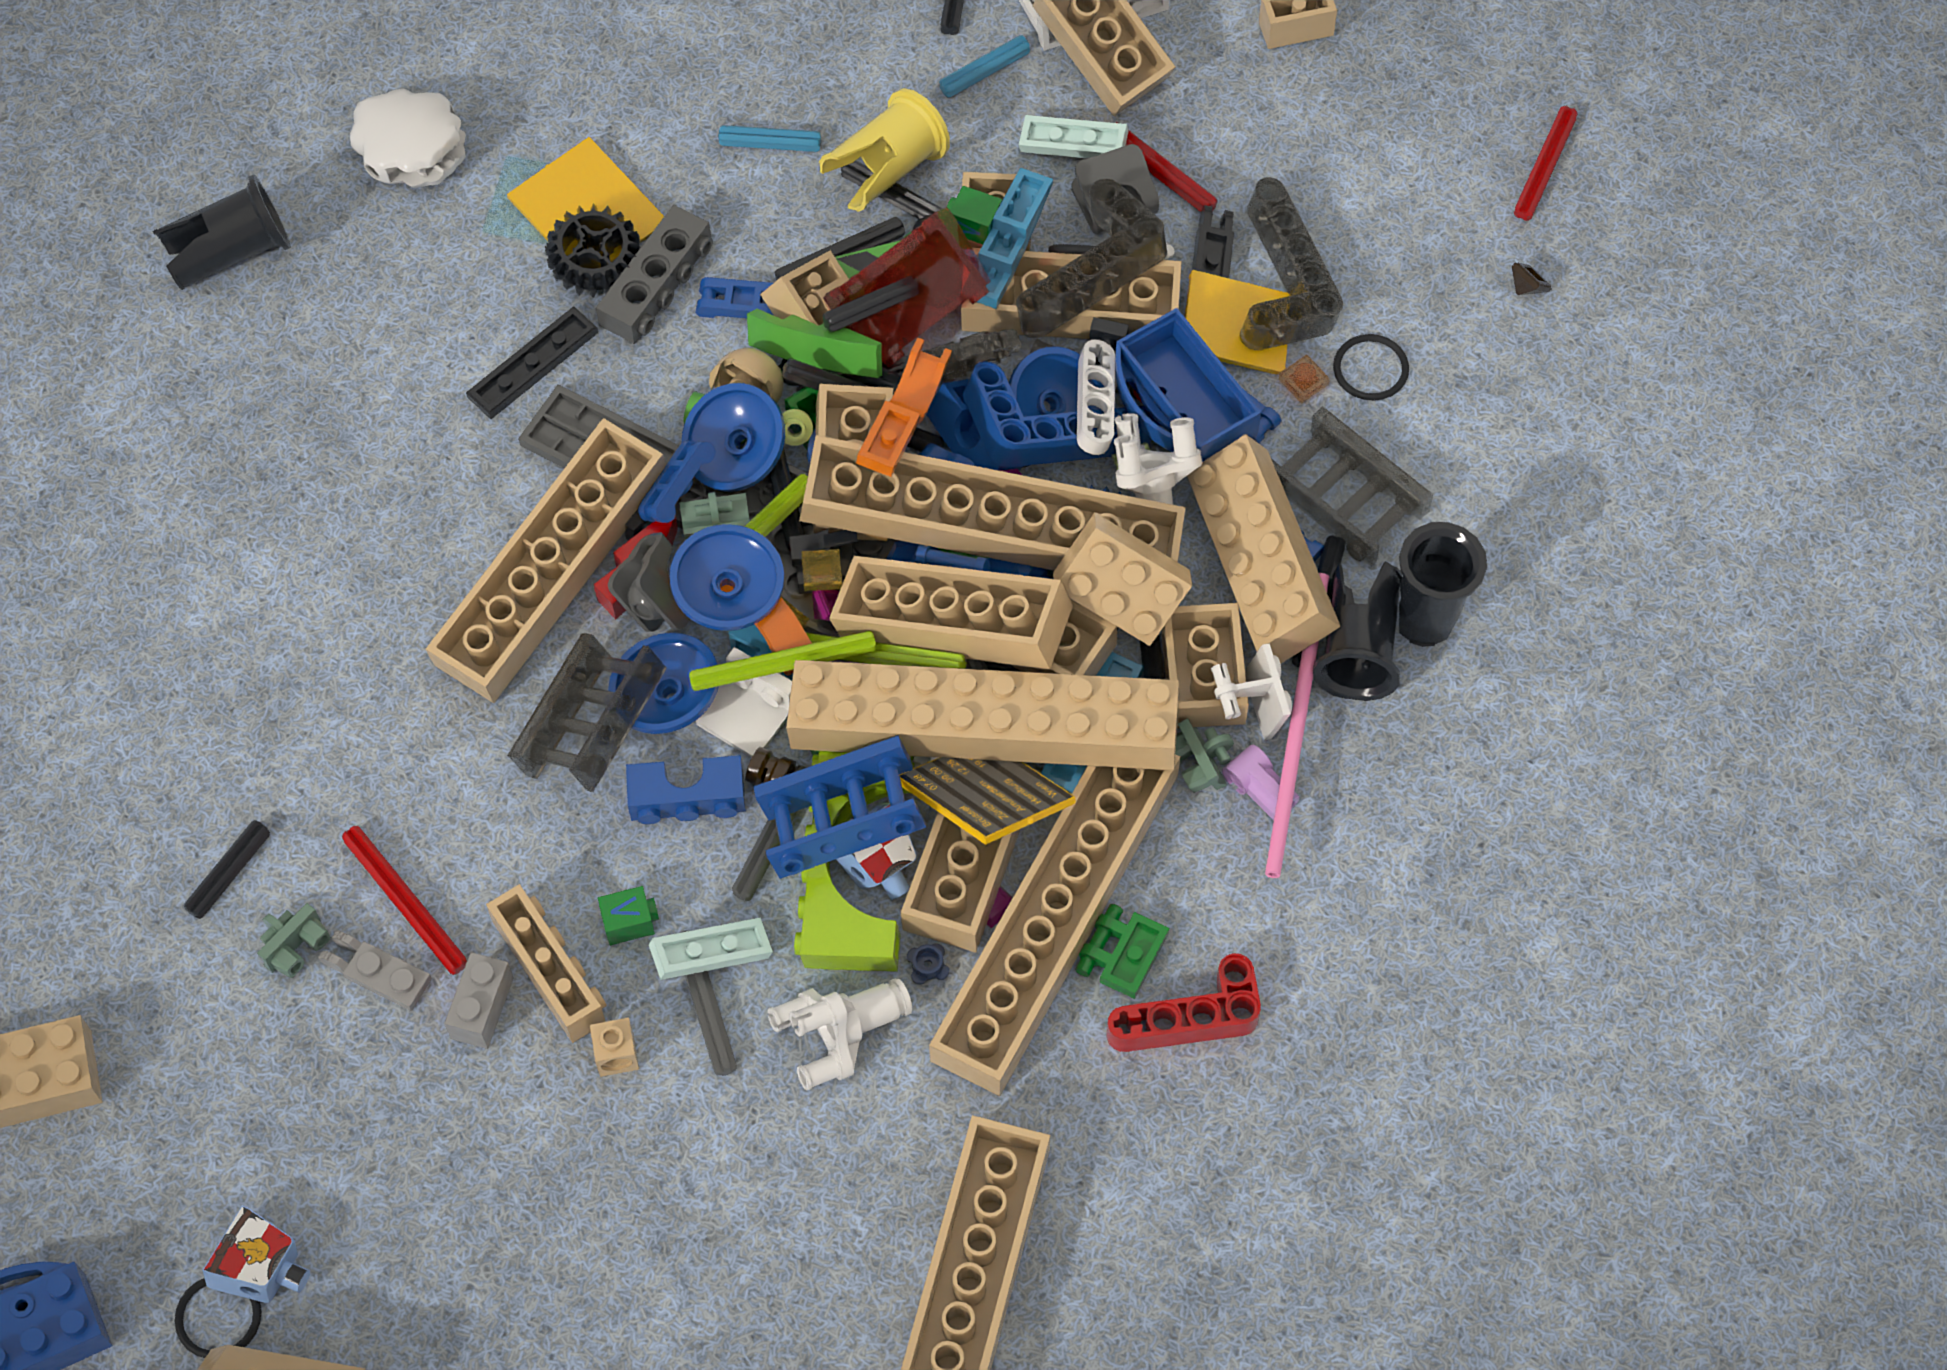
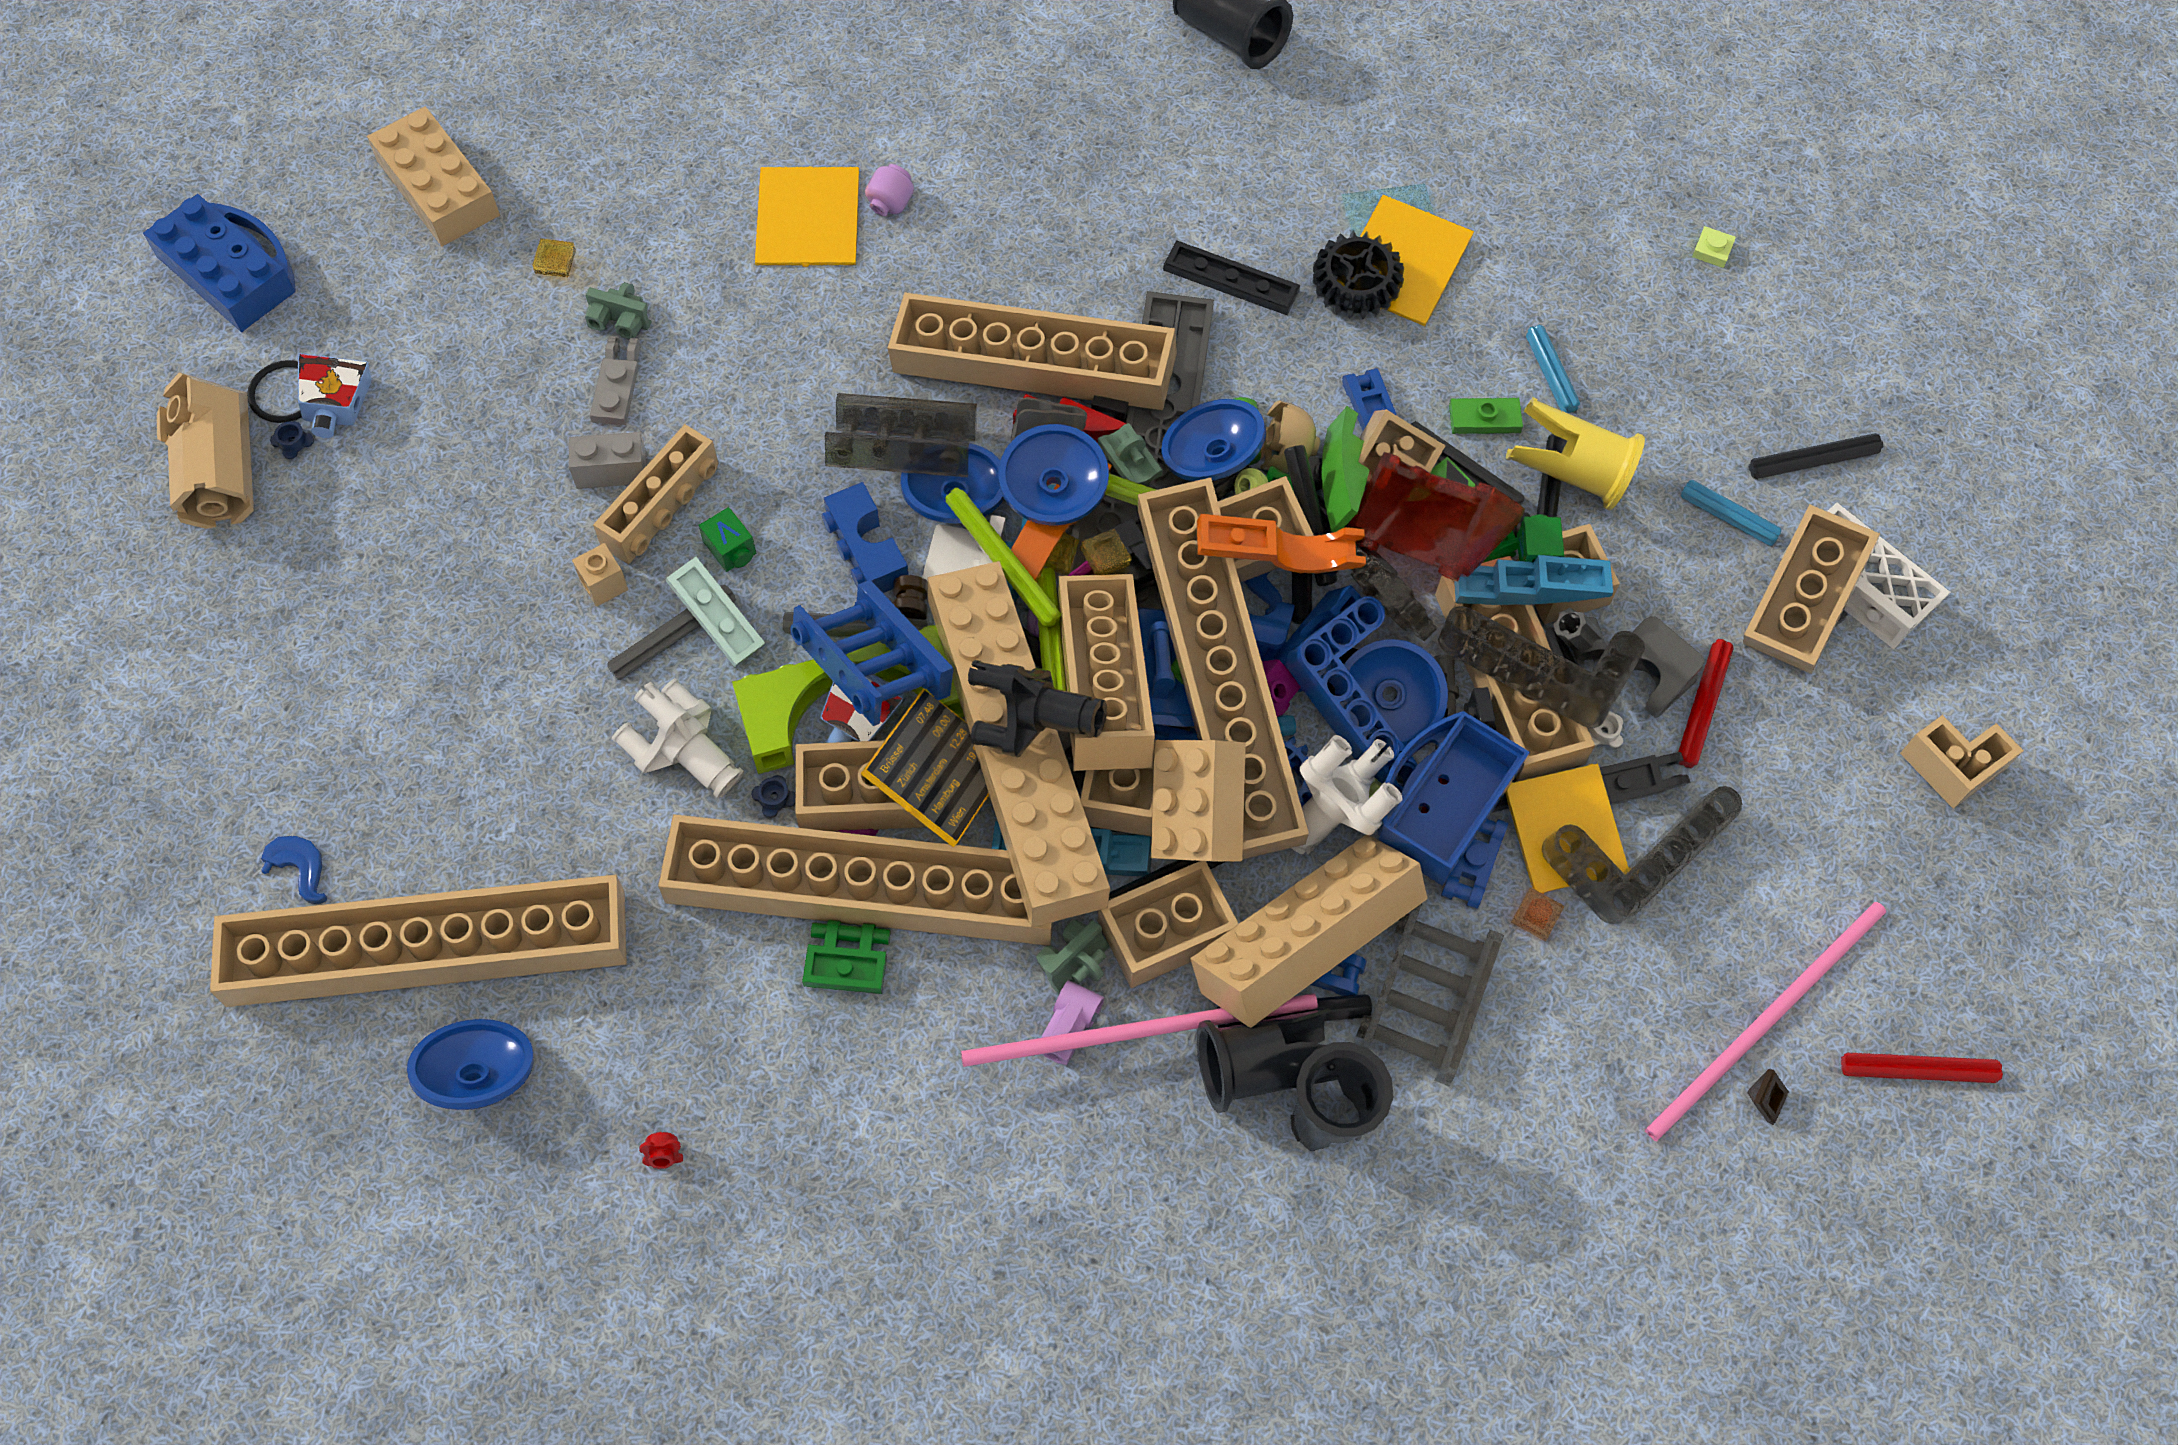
camera: 65 degrees right, 0 degrees up
(186, 985) = (554, 257): none -> clear yellow plate
(227, 869) = (667, 246): black axle -> none
(254, 722) = (807, 216): none -> yellow piece
(270, 629) = (889, 190): none -> lavender head
(291, 1309) = (285, 432): none -> dark blue plate
(404, 900) = (687, 376): red axle -> none
(408, 137) = (1396, 103): white piece -> none
(656, 257) = (1361, 330): dark grey brick -> none
(675, 481) = (1147, 410): blue plate -> none
(793, 213) = (1485, 415): none -> bright green plate
(870, 304) = (1400, 493): black axle -> none
(993, 666) = (1032, 708): none -> black wheel
(1063, 228) = (1580, 635): none -> dark grey piece
(1070, 136) = (1691, 609): light aqua plate -> none
(1096, 396) = (1399, 715): white beam -> none
(1100, 1295) = (470, 1064): none -> blue dish
(1182, 1010) = (797, 1033): red beam -> none
(1252, 1168) = (661, 1150): none -> red plate
(1262, 685) = (1171, 981): white plate -> none
(1374, 338) = (1571, 1005): black tyre -> none
(1464, 254) = (1764, 1022): none -> bright pink piece

